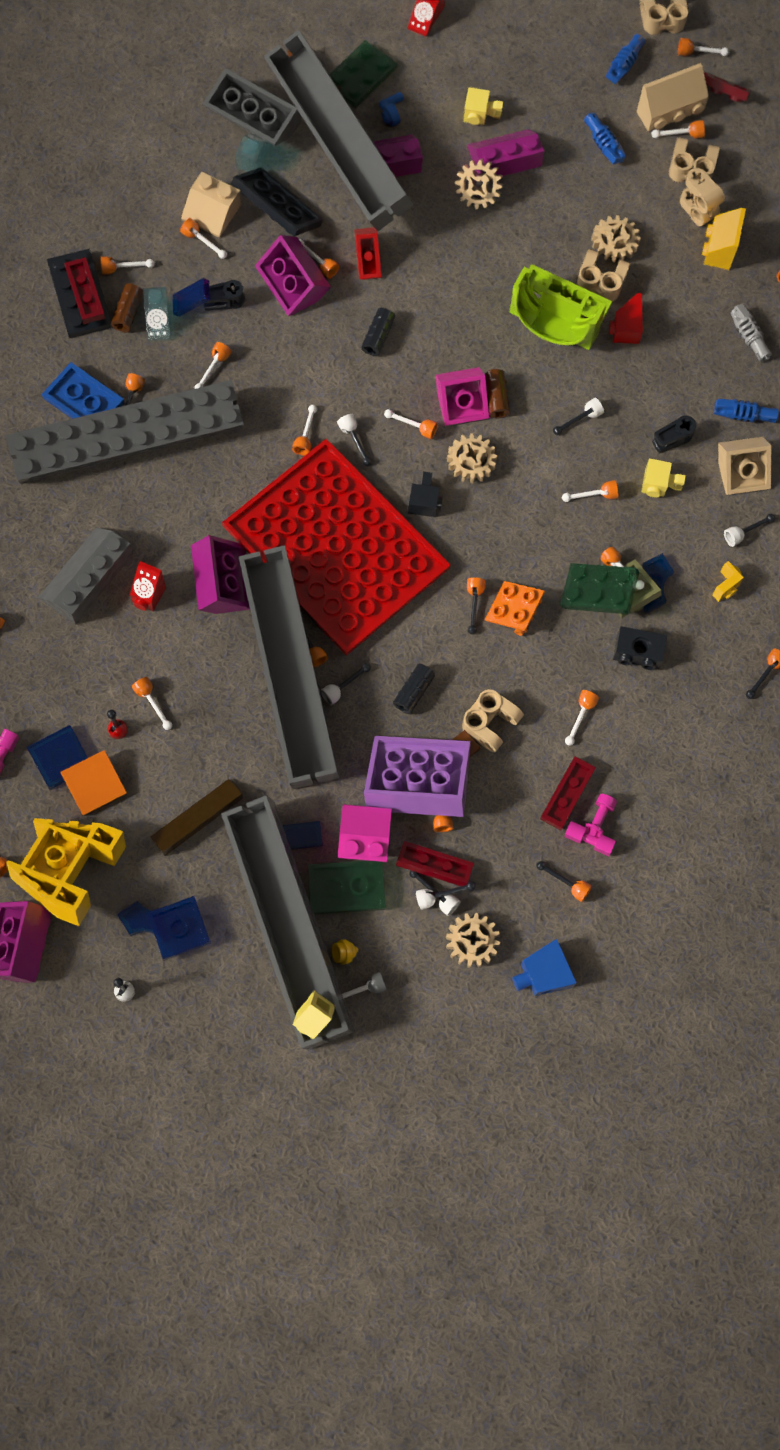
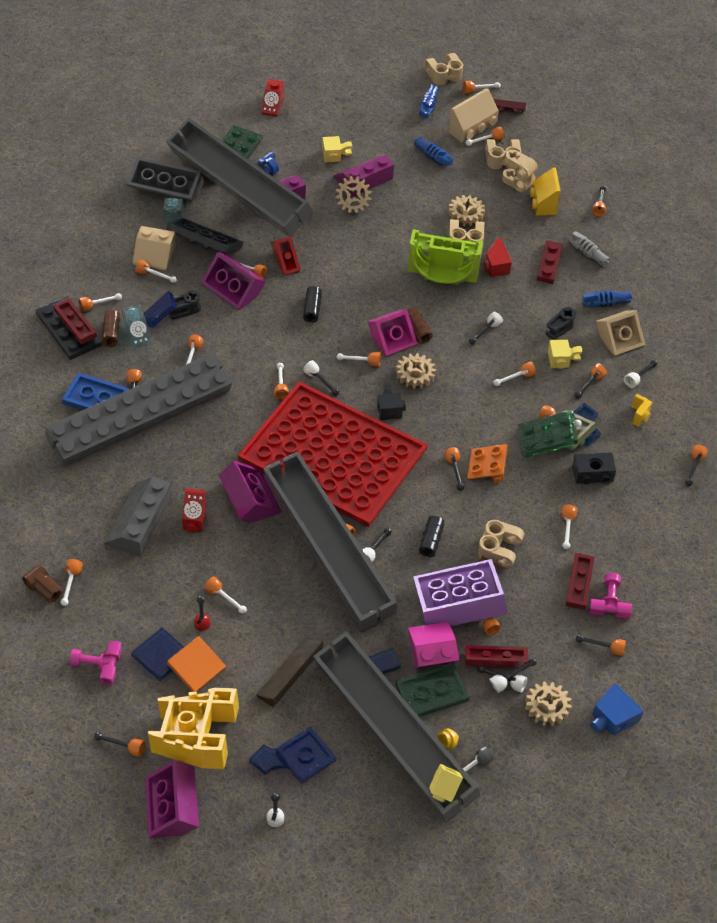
camera: 15 degrees left, 20 degrees down
(694, 339) = (549, 262): none -> dark red plate
(694, 515) = (597, 373): none -> hinge

